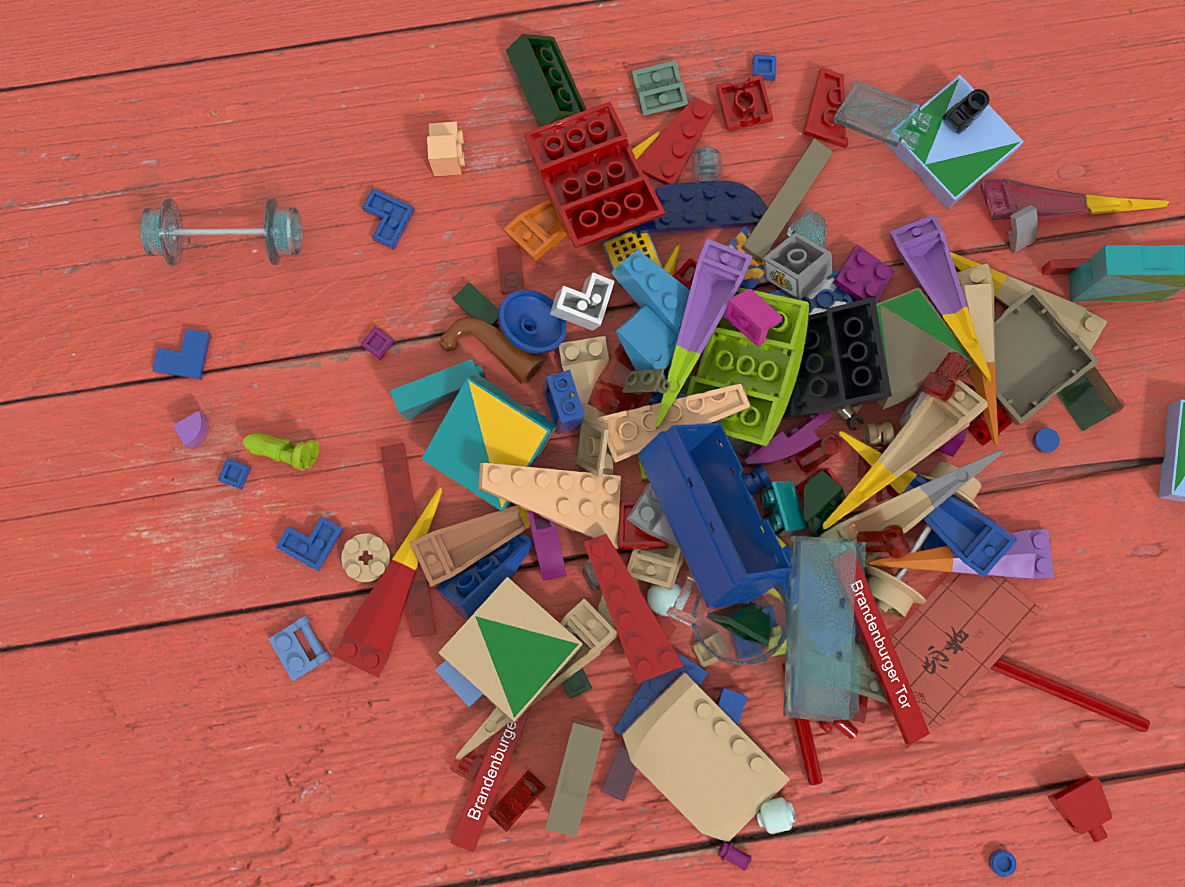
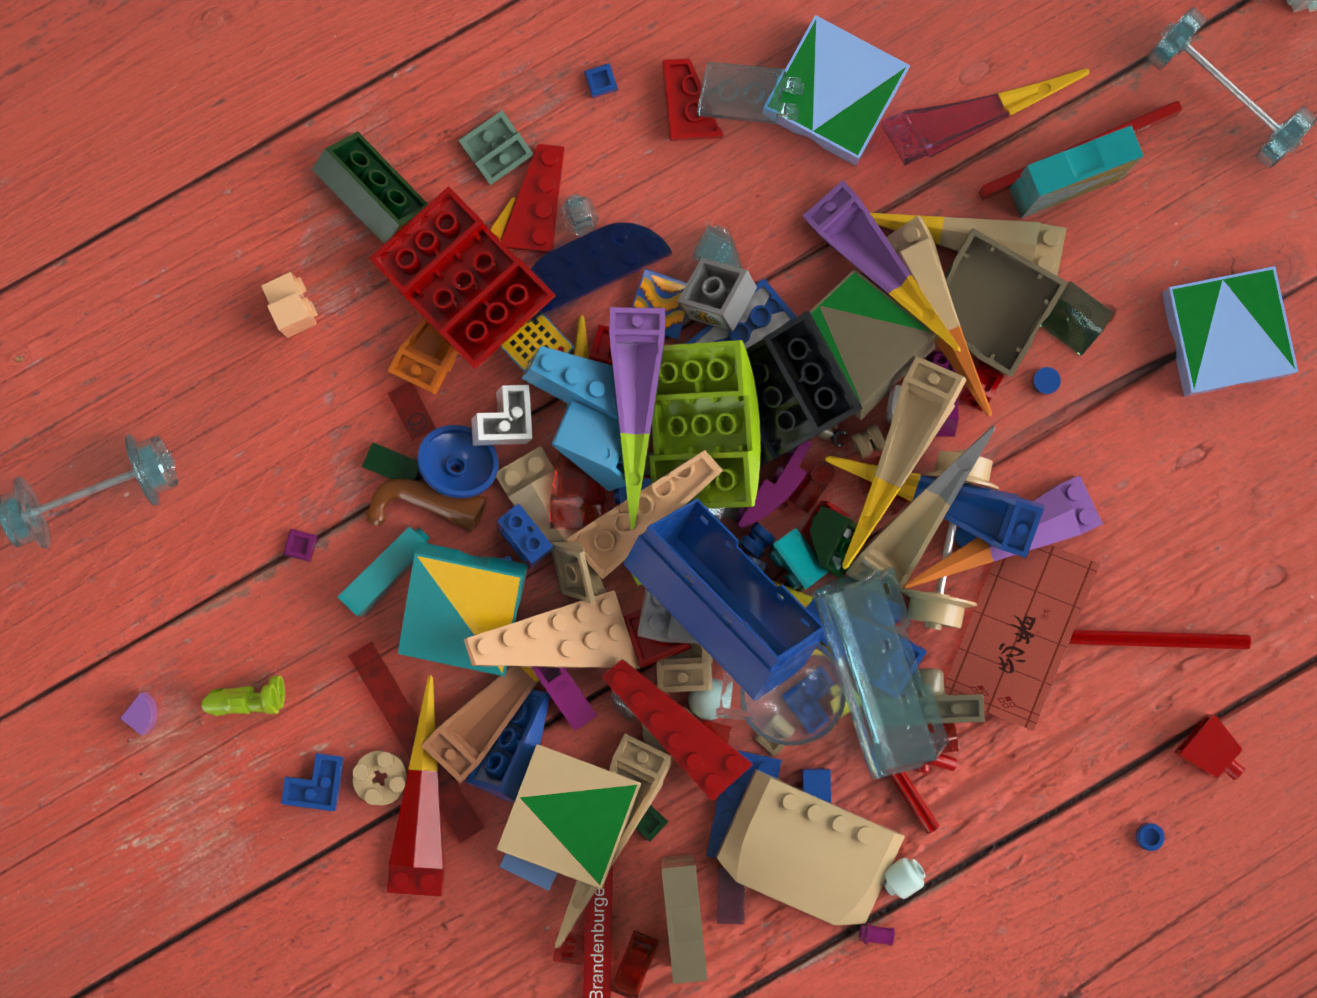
camera: 20 degrees left, 5 degrees up
(189, 361) = (106, 641): blue tile -> none
(234, 474) = (205, 743): blue tile -> none
(292, 652) = (342, 904): medium blue plate -> none
(394, 217) = (262, 397): blue tile -> none
(646, 381) = (603, 484): olive hinge -> none
(735, 114) = (588, 147): red brick -> none
(744, 621) = (798, 694): dark green slope -> none
(752, 316) = (688, 373): dark pink panel -> none
(787, 200) = (680, 223): dark tan tile -> none
(863, 275) = (792, 277): magenta plate -> none
(886, 662) = (954, 677): red tile -> none
(888, 540) = (915, 556): clear red piece -> none
(942, 381) = (910, 372): clear red piece -> none
(964, 112) = (835, 61): black piece -> none
(1023, 228) = (942, 161): light grey slope -> none

